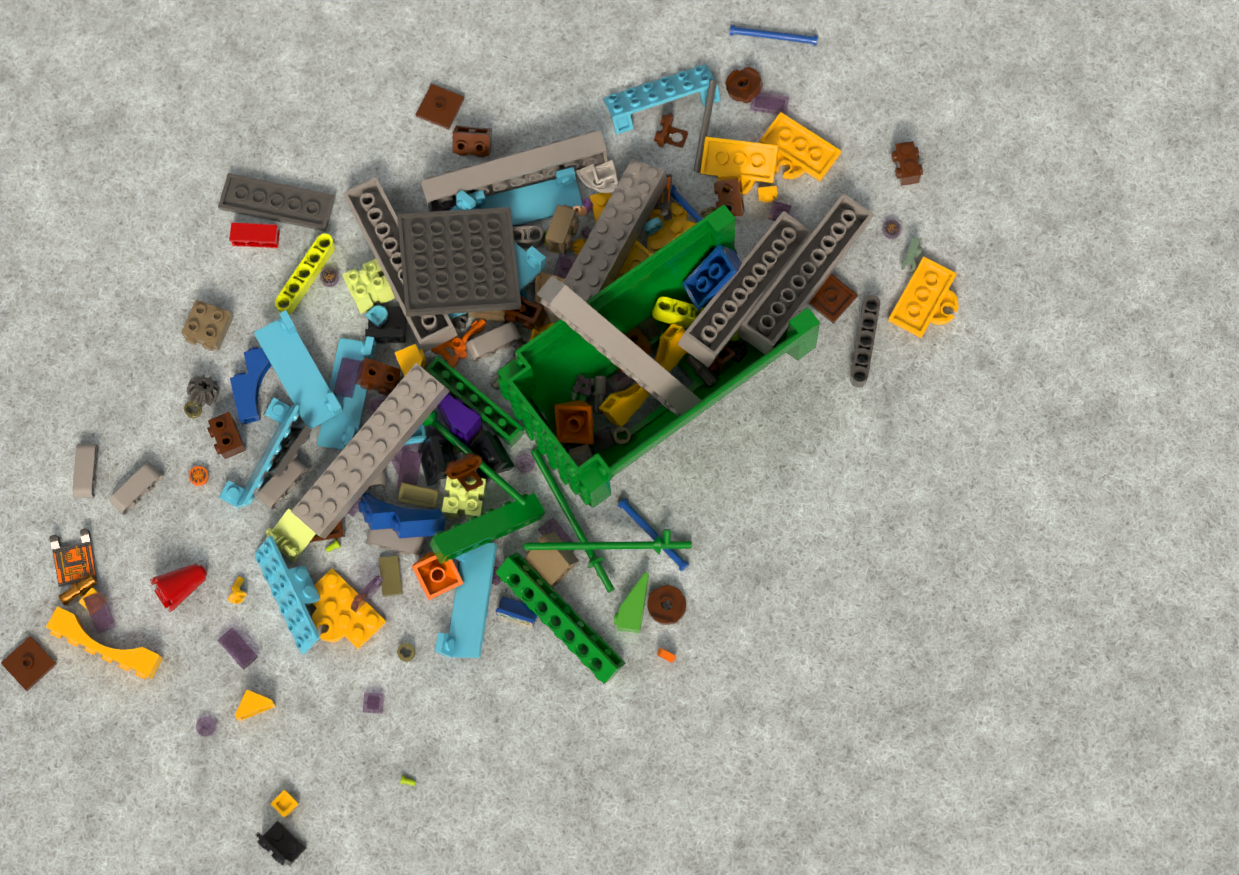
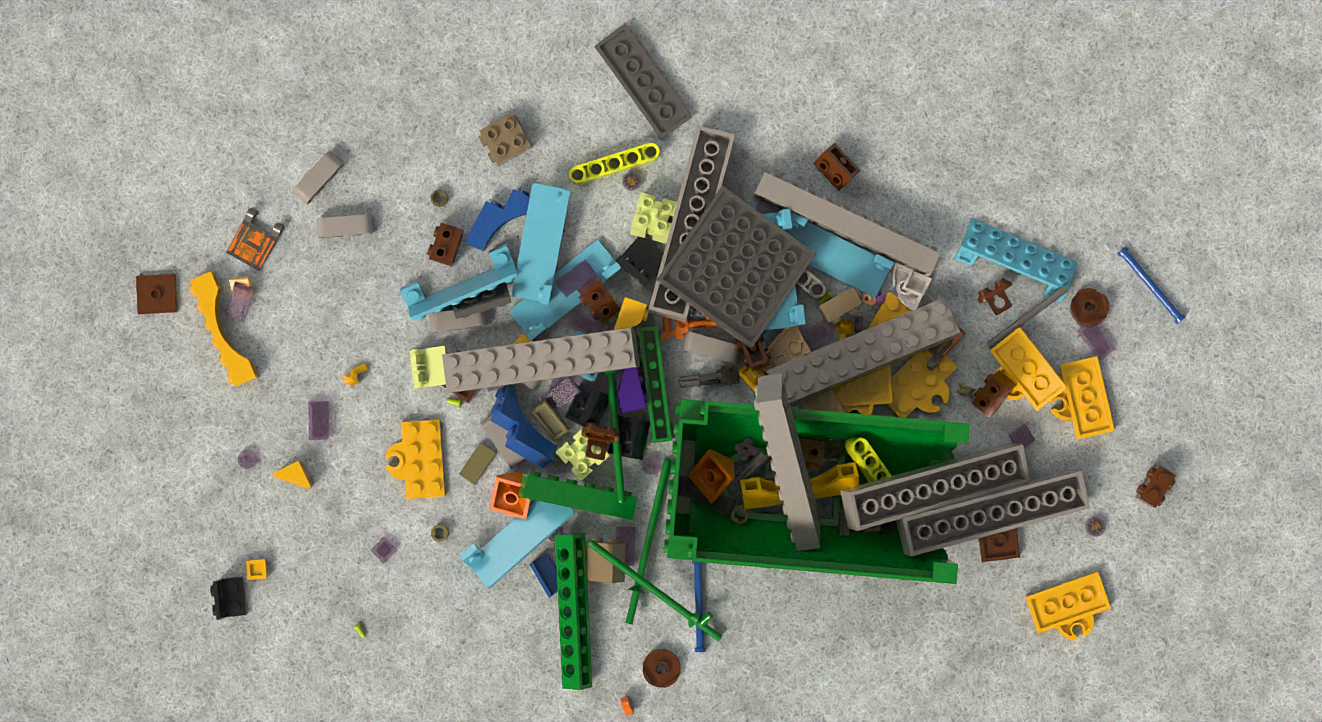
camera: 35 degrees right, 15 degrees up
(78, 589) = (237, 268): pearl gold pin -> none
(178, 584) = (314, 333): red cone -> none
(198, 476) = (400, 256): orange tile -> none
(202, 390) = (458, 192): dark grey gear -> none
(254, 235) = (602, 95): red piece -> none
(292, 591) = (393, 416): medium azure bracket -> none
(366, 593) = (445, 465): tile -> none
(377, 315) = (641, 248): medium azure tile -> none
(440, 106) = (838, 112): reddish brown plate -> none
(580, 454) = (692, 506): light grey brick -> none
(631, 611) = (631, 650): bright green slope -> none
(653, 226) = (913, 365): medium azure tile -> none
(685, 205) = (949, 416): blue bar -> none
(711, 275) = (915, 459): blue slope -> none
(767, 194) = (1025, 415): yellow plate -> none
(865, 332) = (1001, 596): dark grey beam -> none
(914, 250) = (1094, 560): sand green plate -> none

